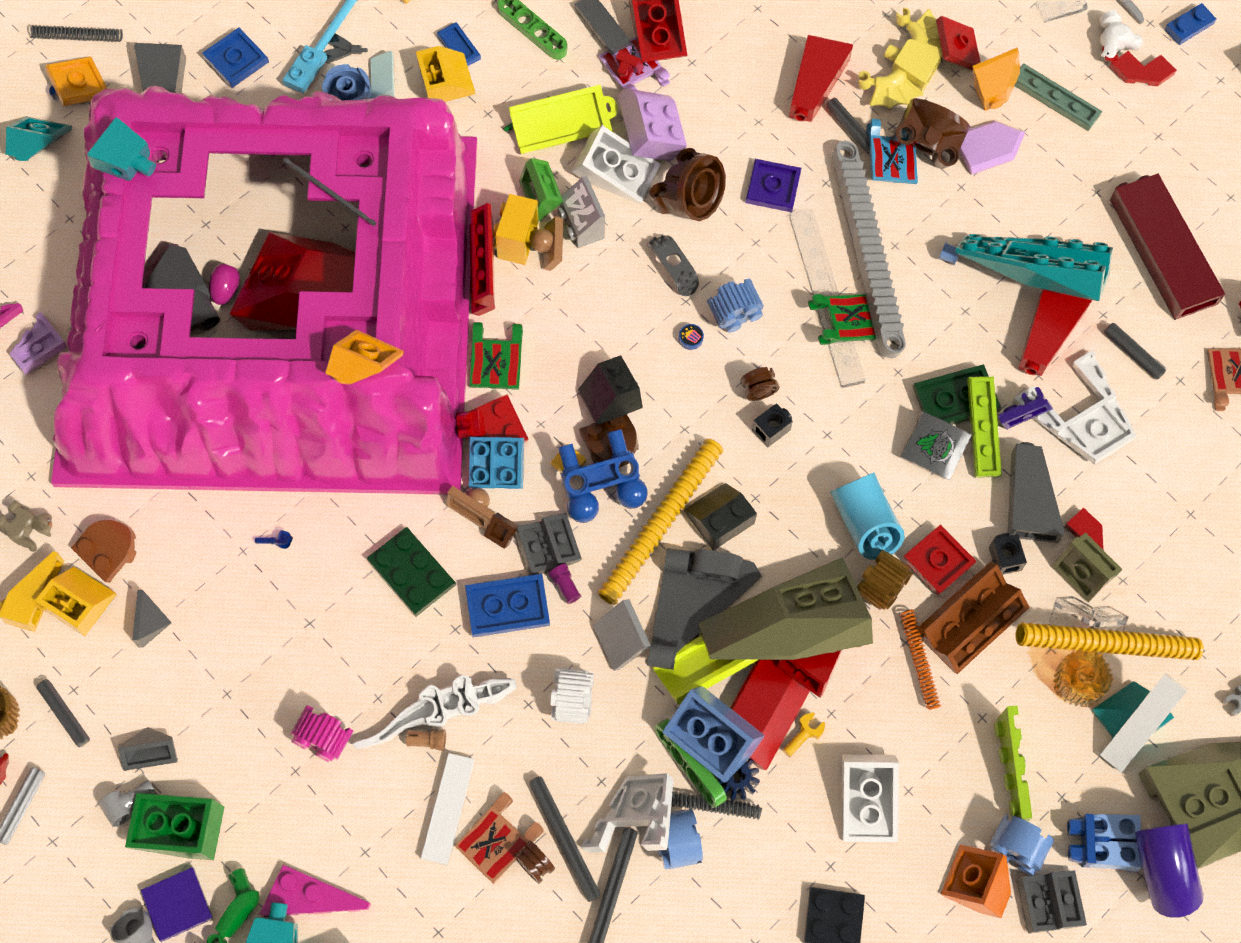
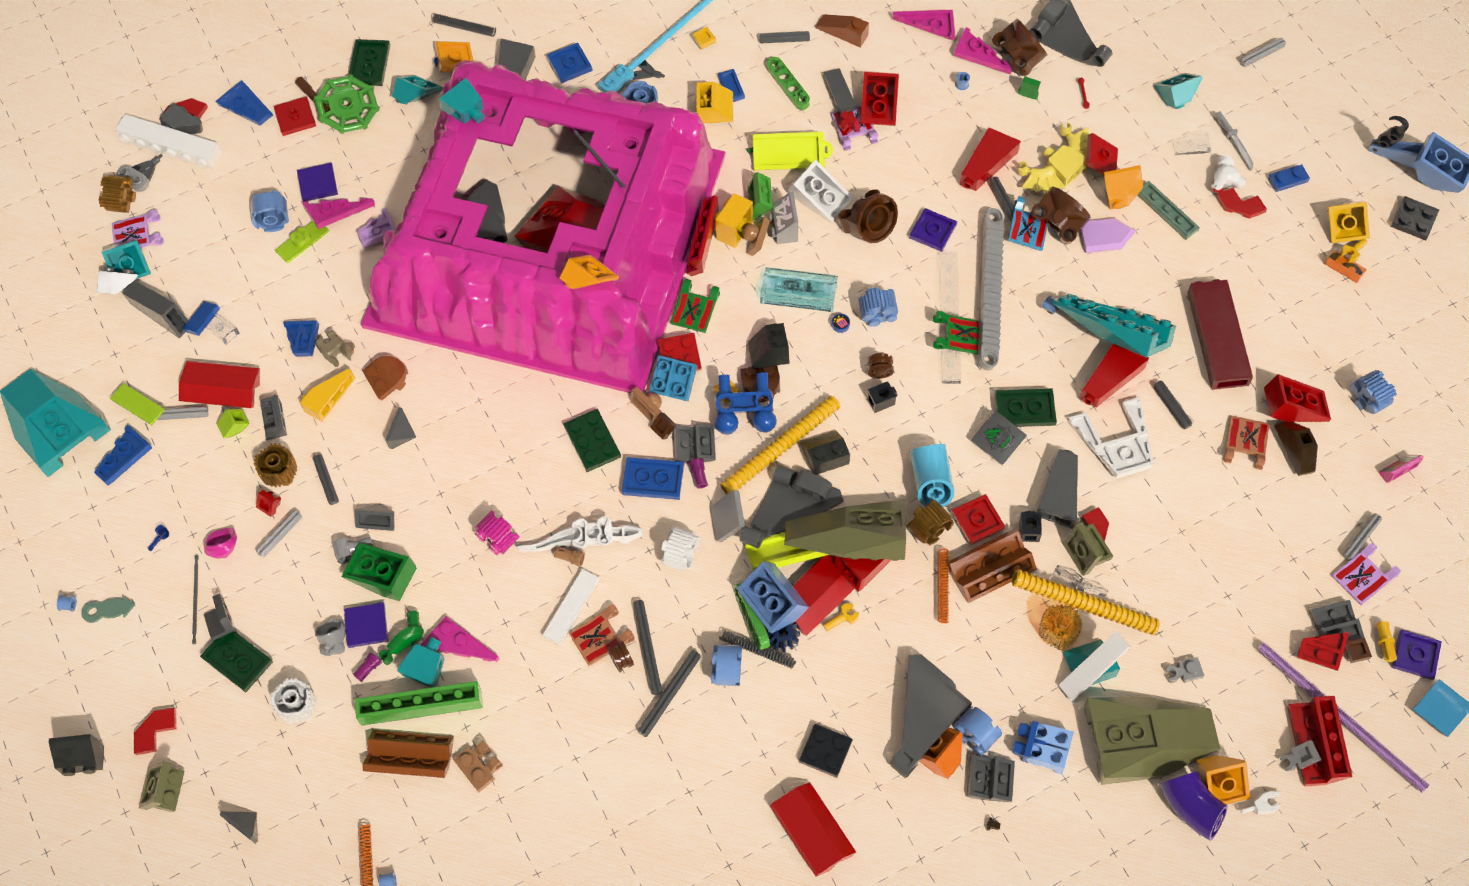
camera: 20 degrees right, 5 degrees down
(75, 599) = (354, 405): yellow slope -> none
(223, 283) = (516, 215): dark pink animal -> none
(282, 541) = (507, 399): clear blue hand -> none
(383, 75) = (671, 93): light aqua slope -> none
(470, 424) = (661, 346): red tile -> none
(625, 303) = (799, 289): none -> clear light blue slope
(638, 802) = (707, 633): white wing -> none
(652, 124) = (853, 167): lavender brick -> none
(682, 274) = (847, 277): dark grey piece -> none
(870, 797) = (876, 672): white slope -> none
(954, 835) = (929, 710): none -> dark grey panel
(984, 427) = (1039, 432): lime tile -> none
(1014, 763) = (989, 668): lime wing -> none
(1016, 414) = (1077, 427): dark purple plate -> none
(1170, 870) = (1083, 772): dark purple brick -> none

